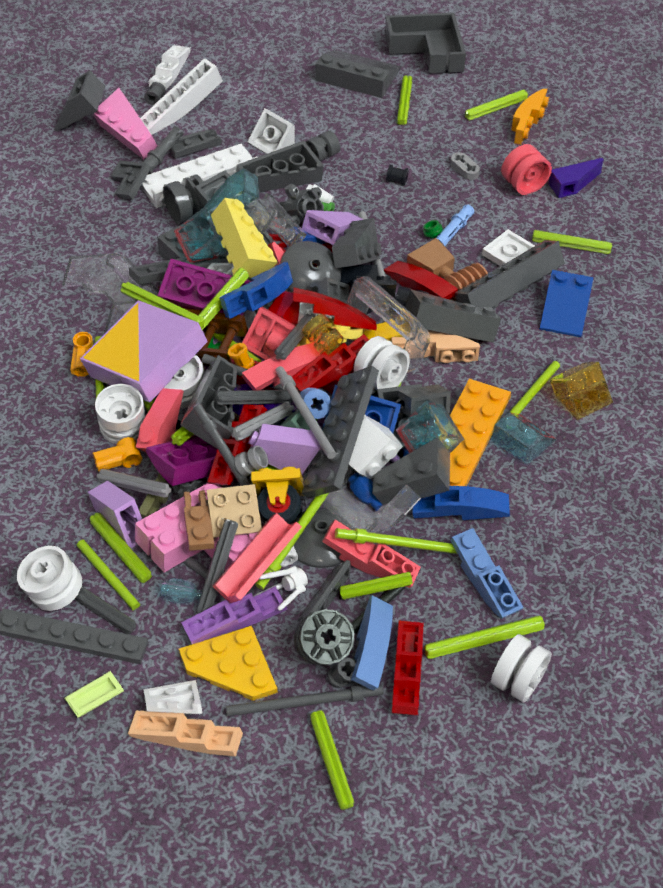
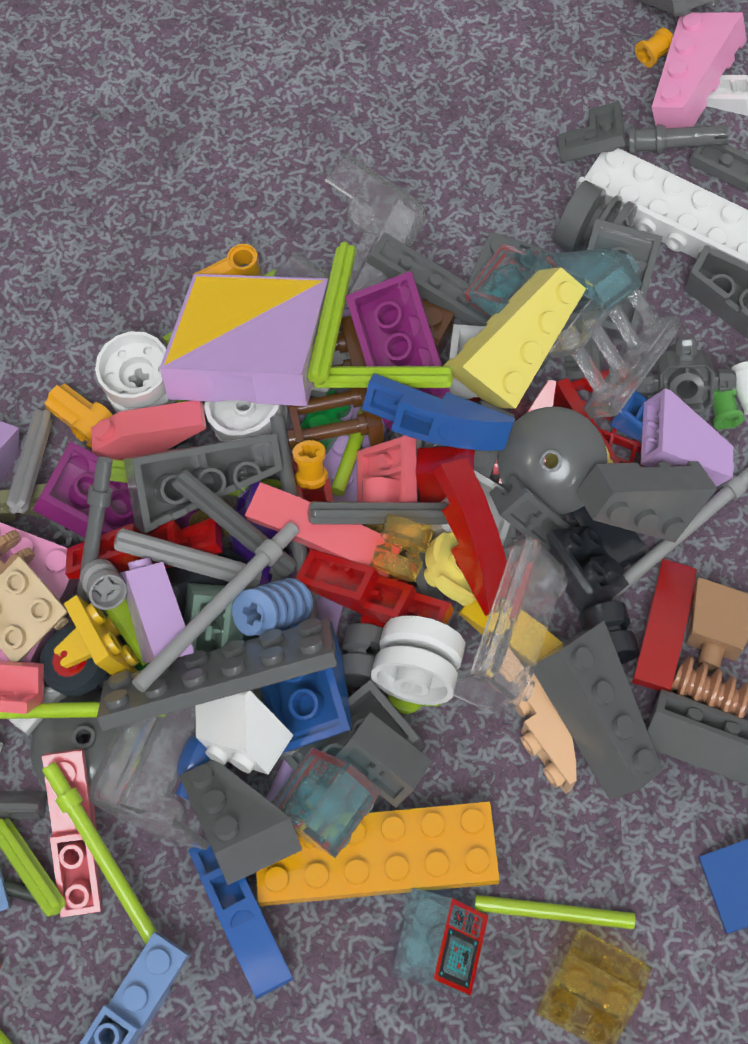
camera: 60 degrees right, 15 degrees up
(97, 136) = (651, 50): none -> light orange bush

